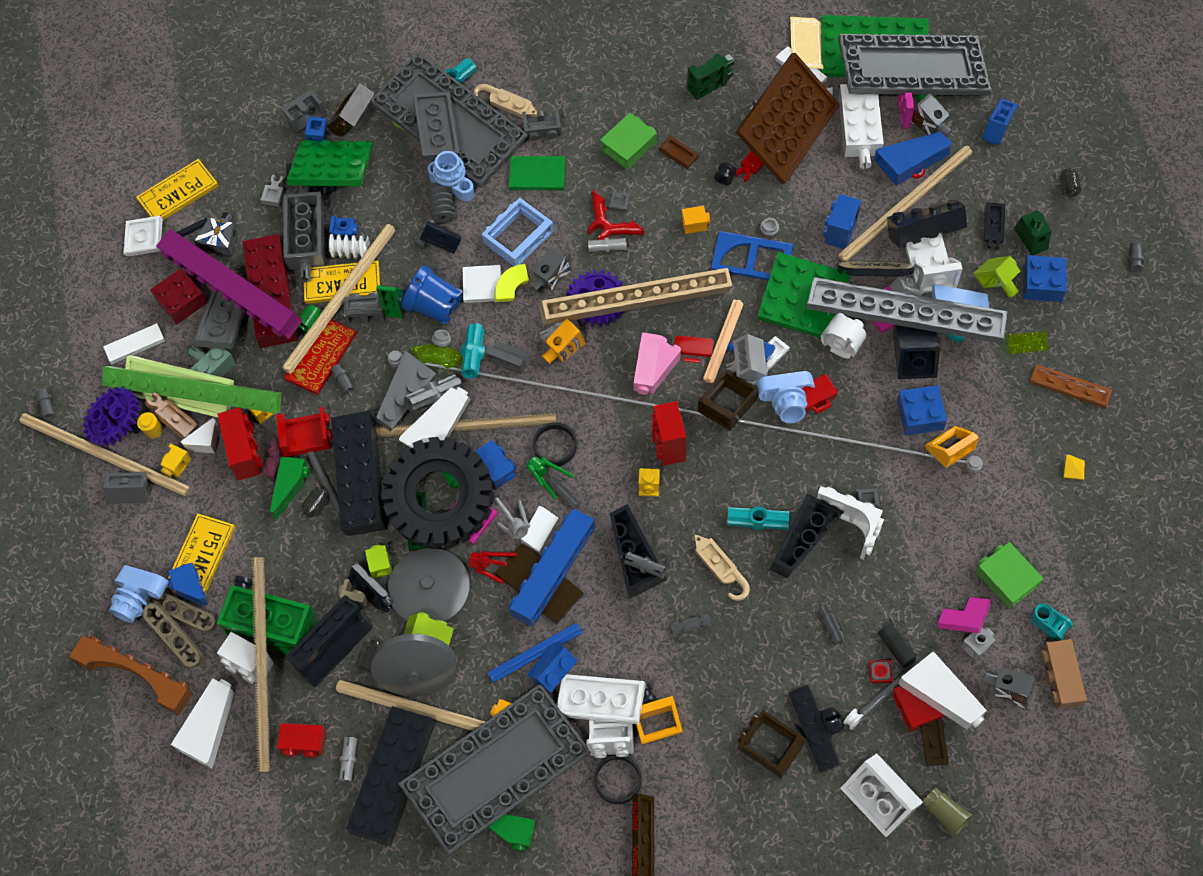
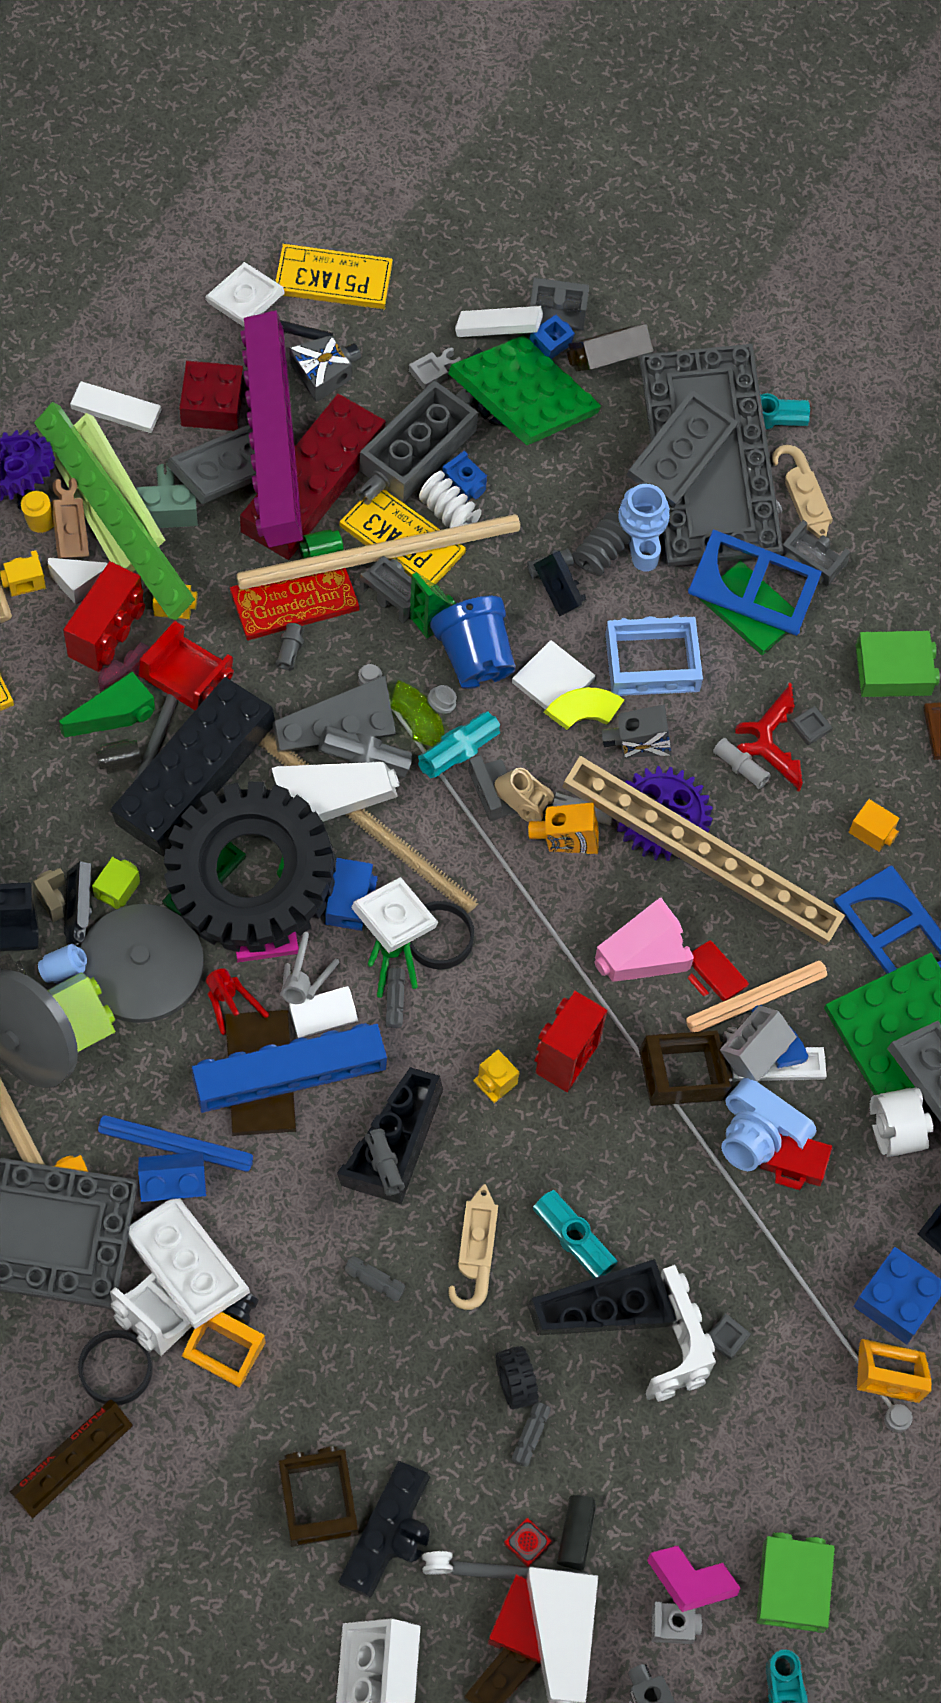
camera: 35 degrees right, 0 degrees up
(283, 143) = (499, 321): none -> white tile
(393, 622) = (62, 964): none -> light blue brick
(511, 178) = (710, 587): none -> blue window
(525, 344) = (524, 794): none -> tan piece
(527, 453) = (394, 915): none -> white tile
(801, 604) = (517, 1377): none -> black tyre

